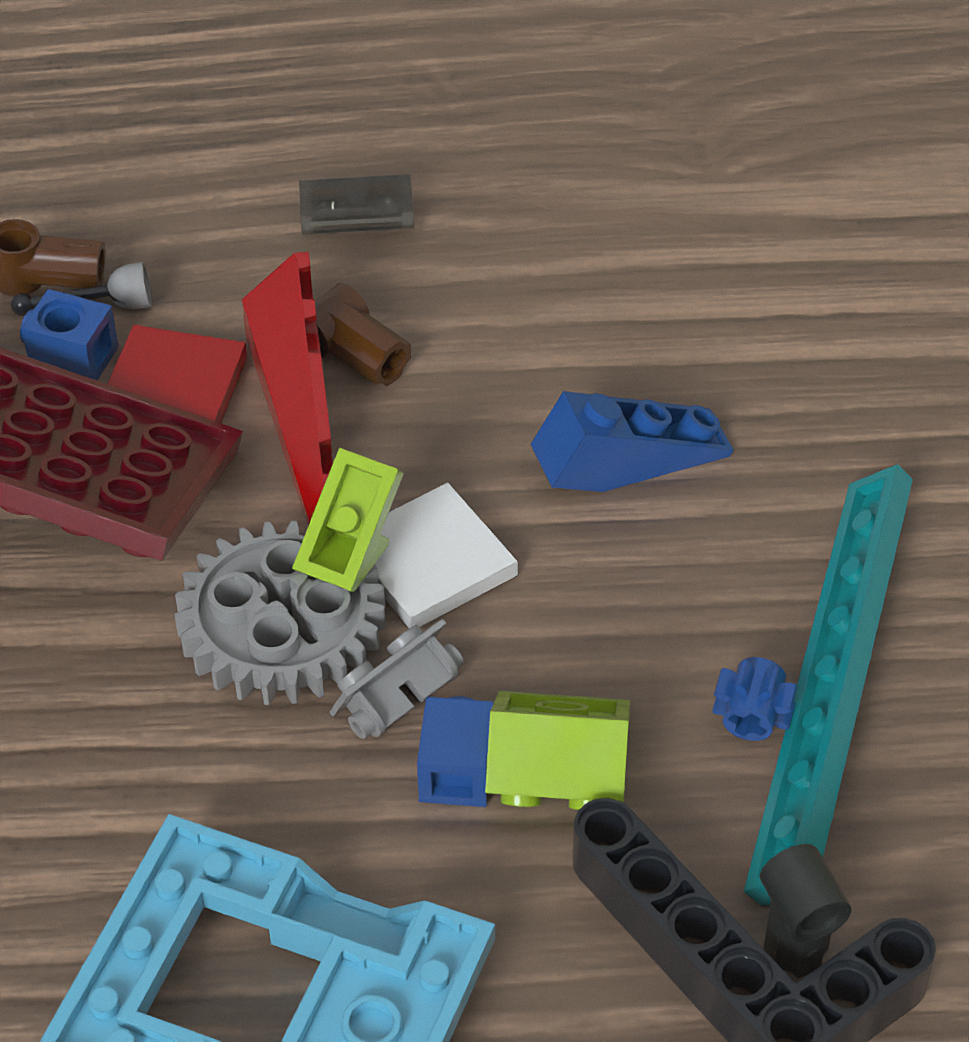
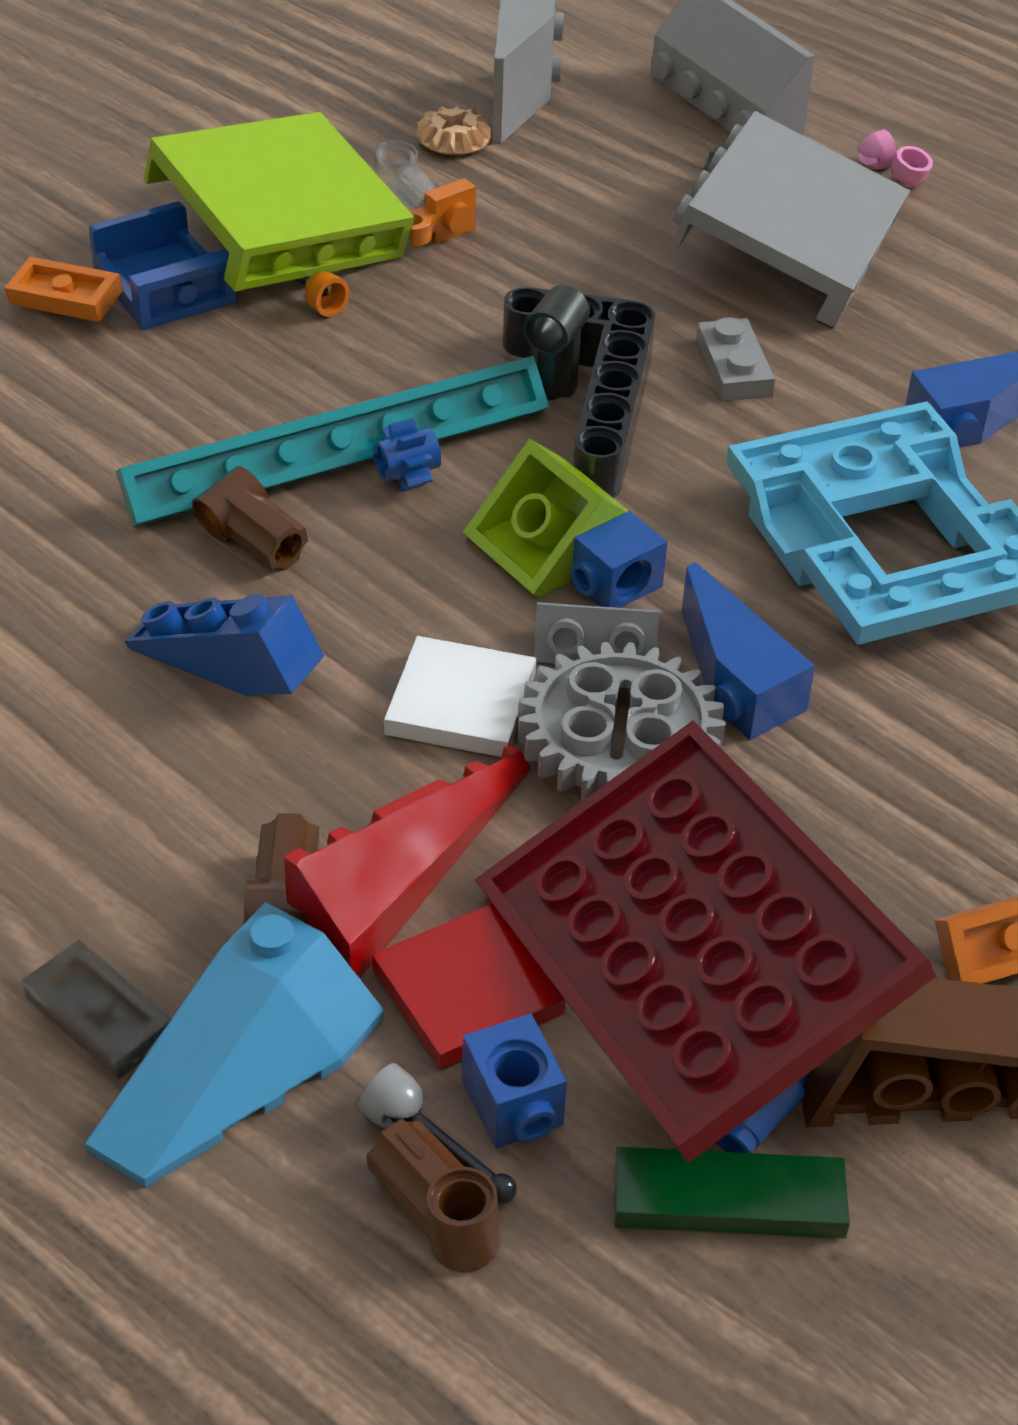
camera: 135 degrees left, 5 degrees down
(246, 240) = (249, 1031): none -> dark azure wedge
(252, 740) = (747, 661): none -> blue slope
(348, 521) = (529, 678): lime slope -> none
(791, 540) = (241, 510): none -> reddish brown piece

